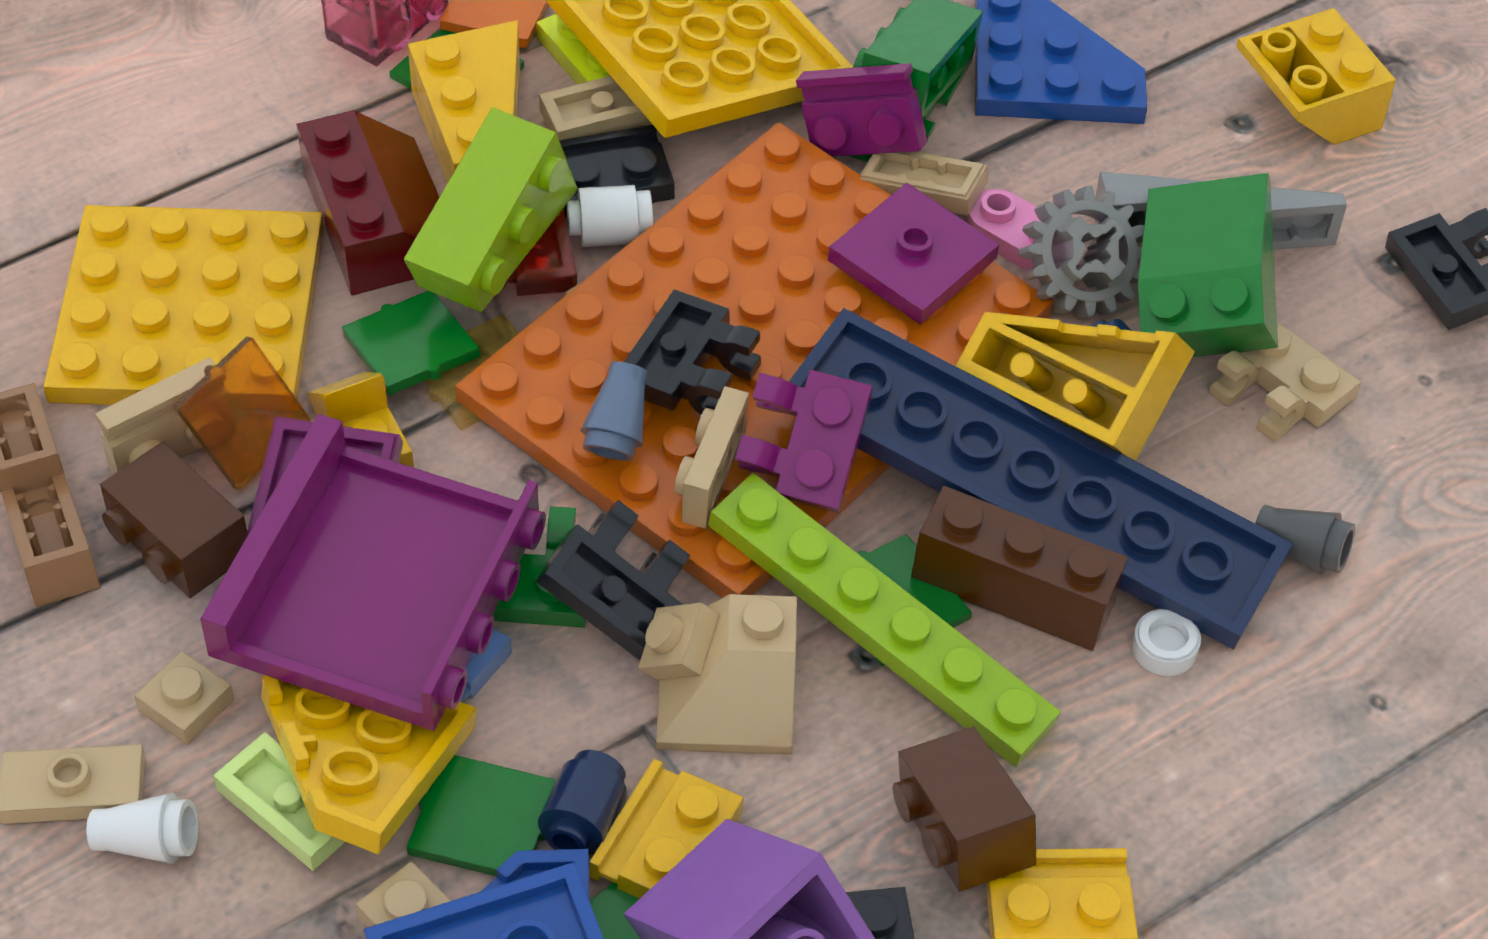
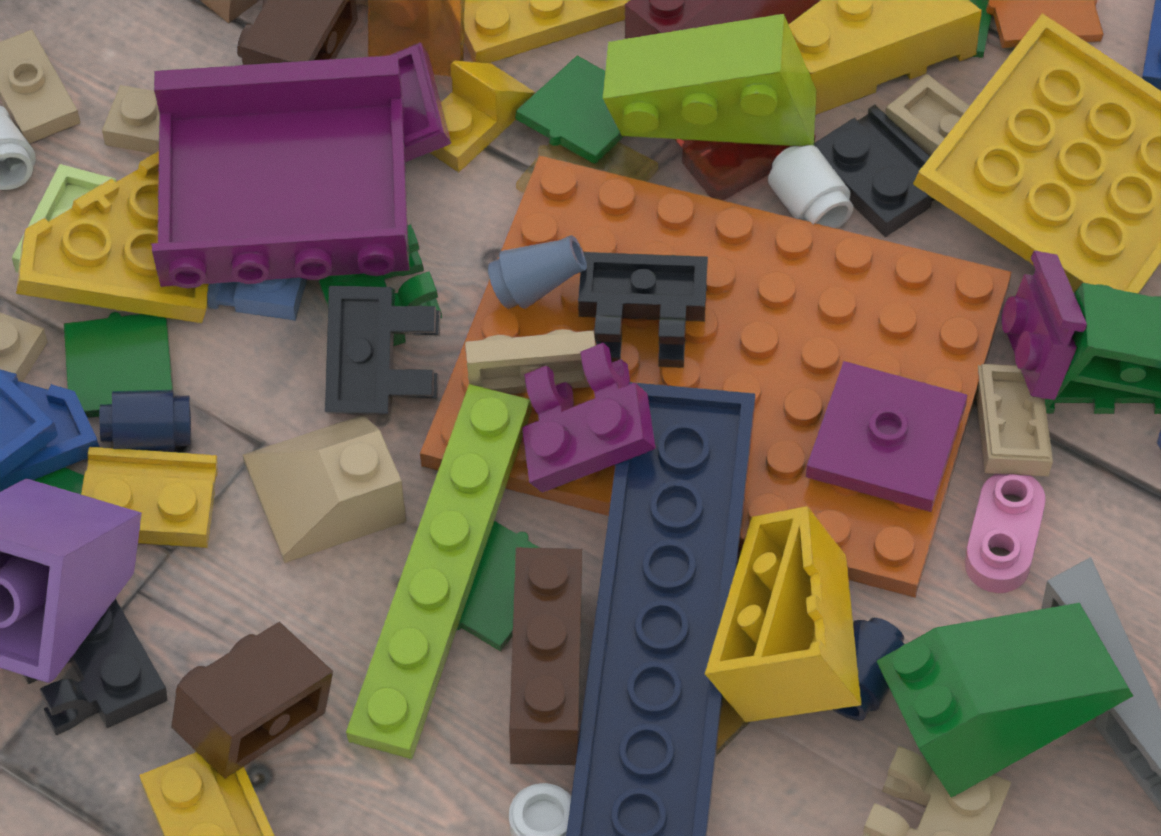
camera: 70 degrees right, 5 degrees up
(678, 641) = (330, 417): tan plate -> none
(1059, 247) = (977, 556): light grey gear -> none

